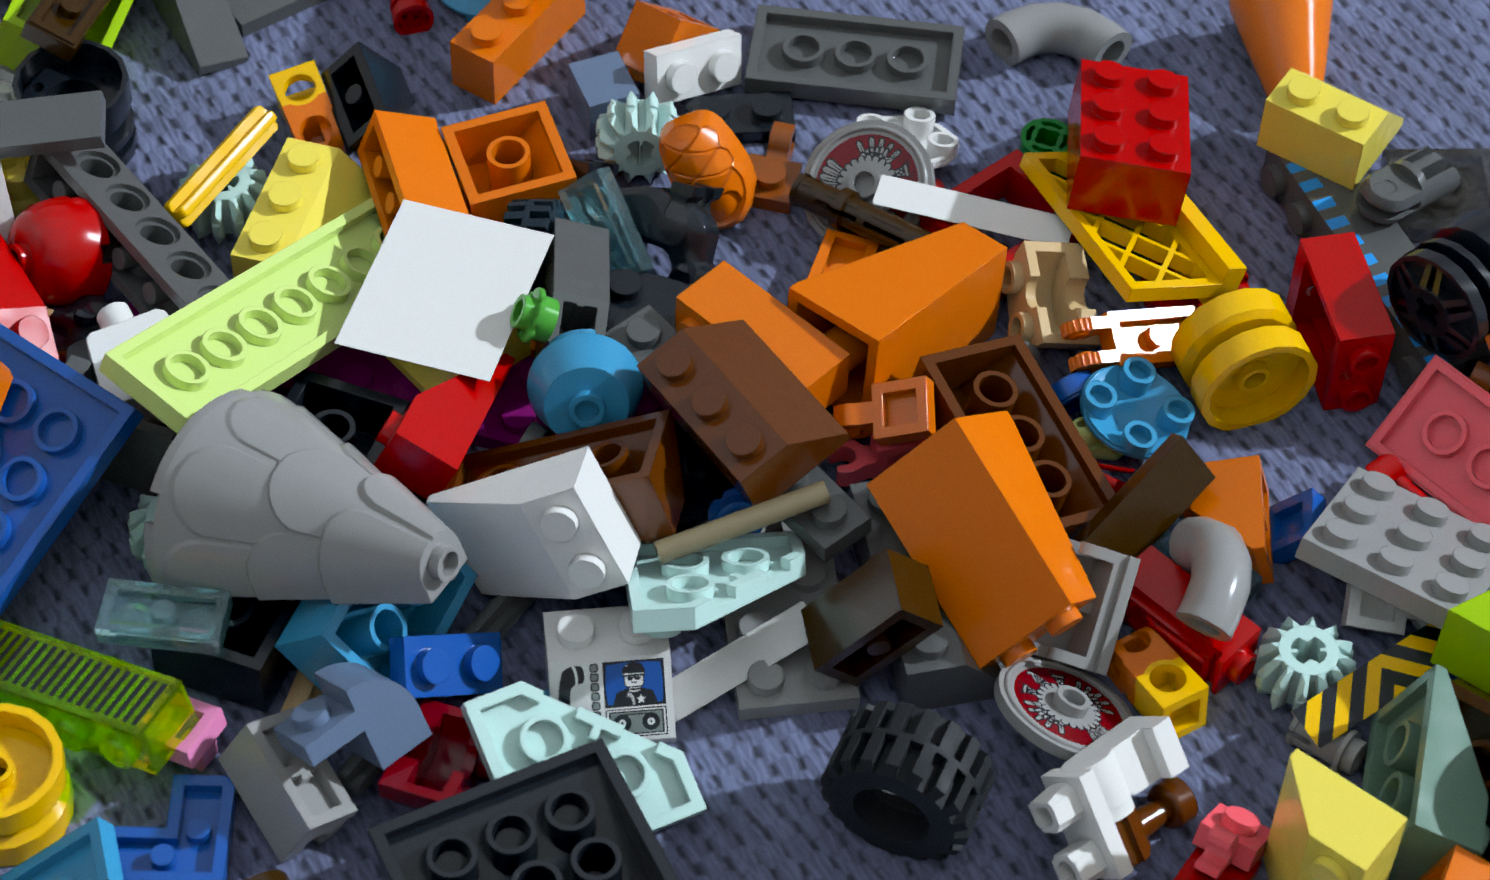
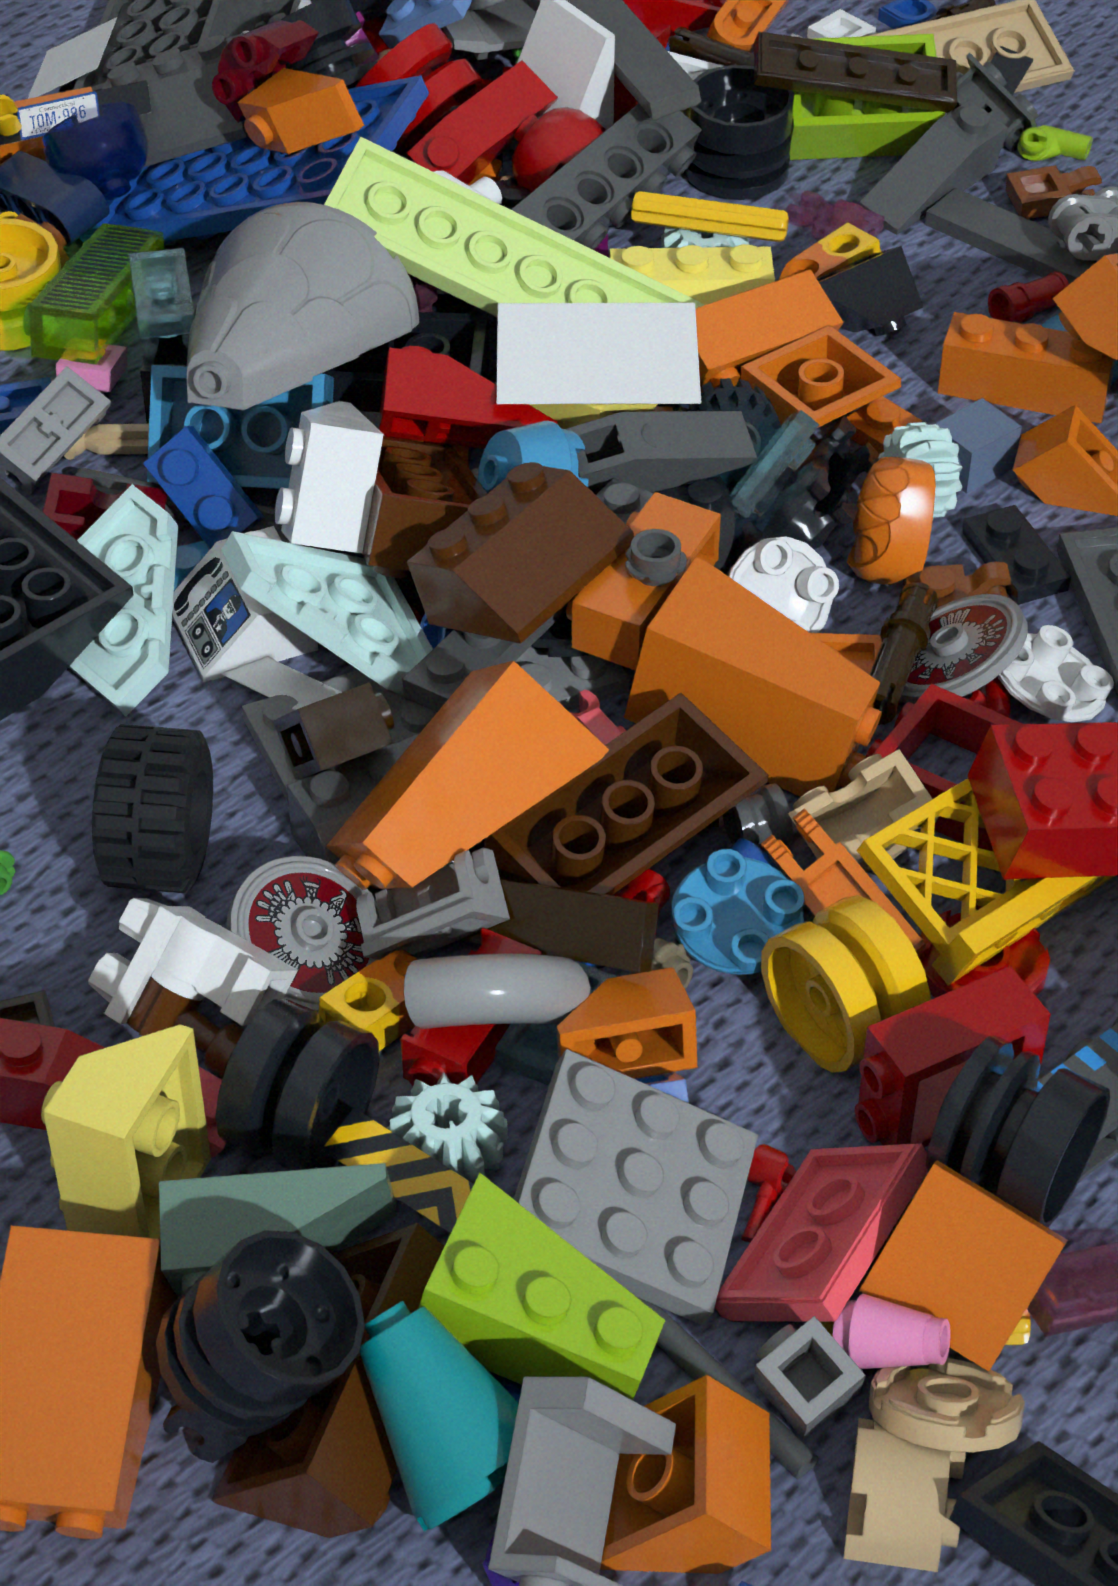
camera: 75 degrees right, 5 degrees down
(216, 91) = (828, 218): none -> clear pink plate
(355, 709) = (108, 427): sand blue brick -> none
(535, 316) = (582, 404): bright green plate -> none
(693, 66) = (1041, 487): white plate -> none
(741, 522) = (400, 605): dark tan bar -> none
(755, 259) = (789, 579): none -> white dish
(787, 312) = (655, 557): none -> dark grey plate
(897, 414) = (612, 701): orange plate -> none
(970, 209) = (943, 713): white sticker -> none
(1251, 730) = (294, 1084): none -> black wheel

